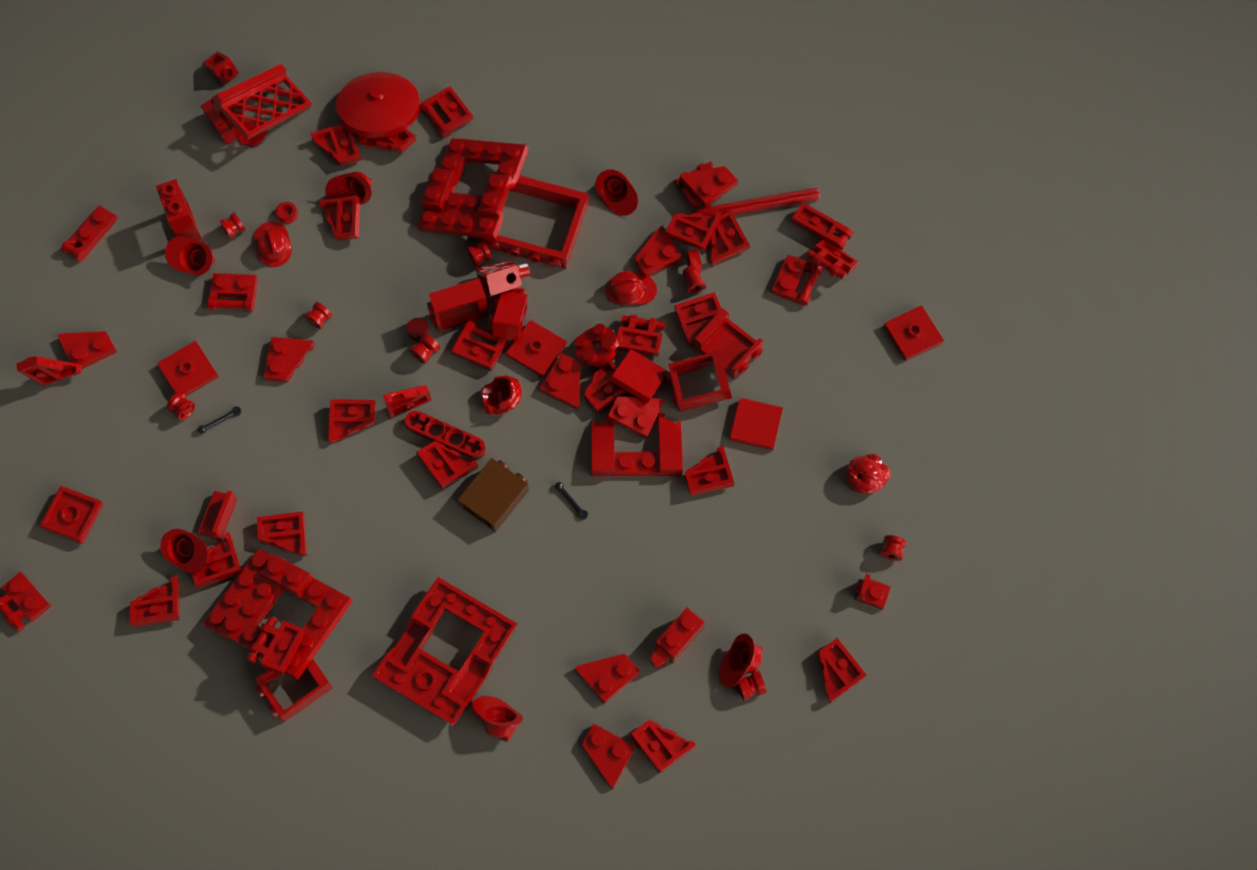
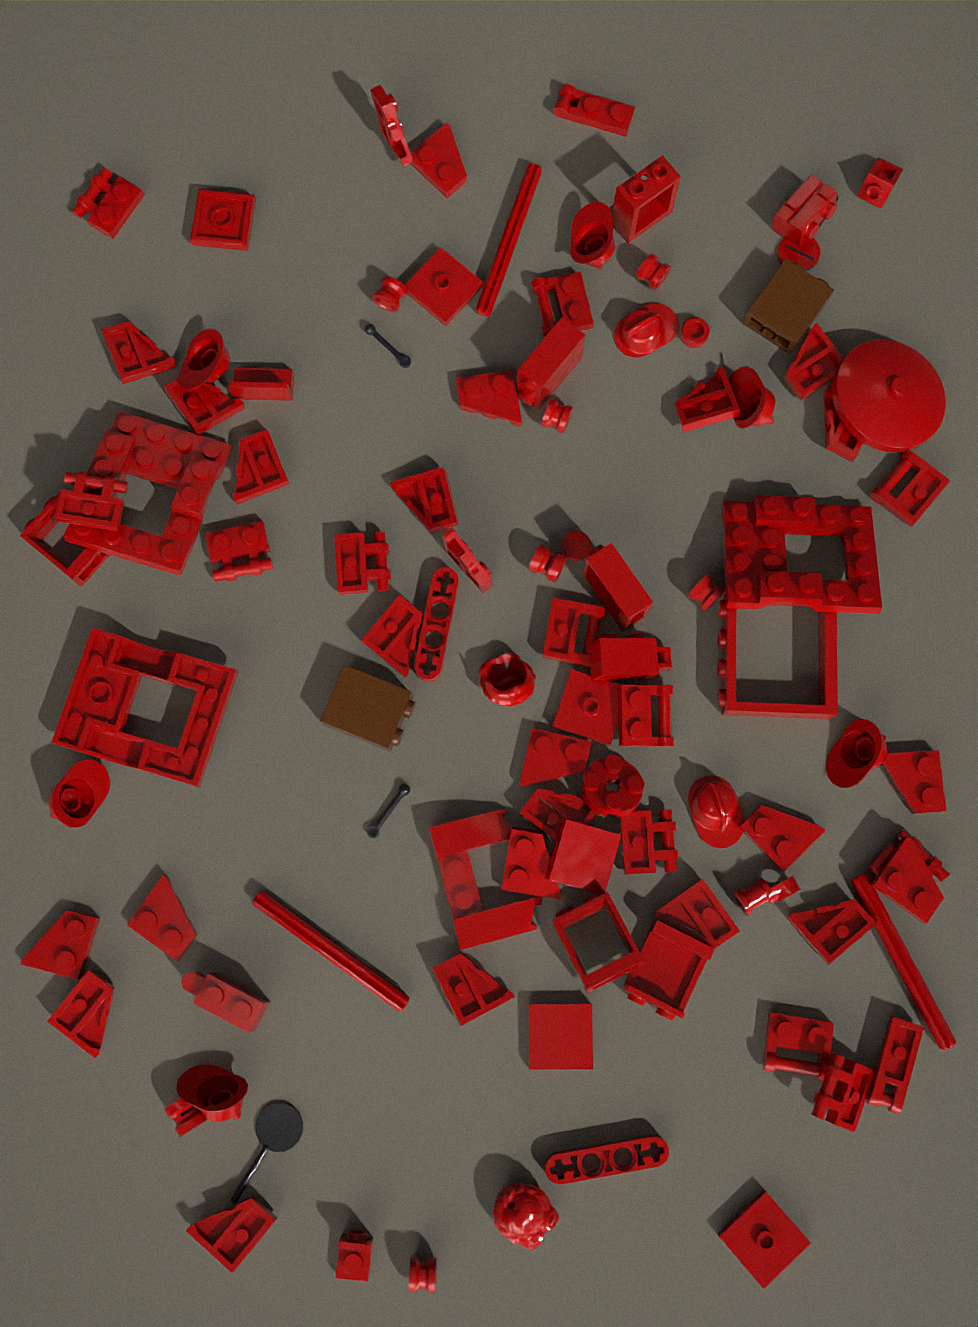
camera: 80 degrees right, 10 degrees up
(168, 315) = (508, 240): none -> red axle
(250, 89) = (849, 224): red fence -> none
(279, 306) = (550, 363): none -> red brick
(291, 147) = (788, 306): none -> reddish brown brick
(338, 560) = (238, 543): none -> red plate
(381, 481) = (352, 563): none -> red plate
(501, 276) = (675, 632): torso -> none
(552, 319) = (635, 715): none -> red plate
(644, 162) = (918, 780): none -> red wing
(659, 562) = (331, 951): none -> red axle
(693, 229) = (829, 877): red wing -> none
(776, 627) = (278, 1130): none -> black piece
(841, 414) = (607, 1165): none -> red beam

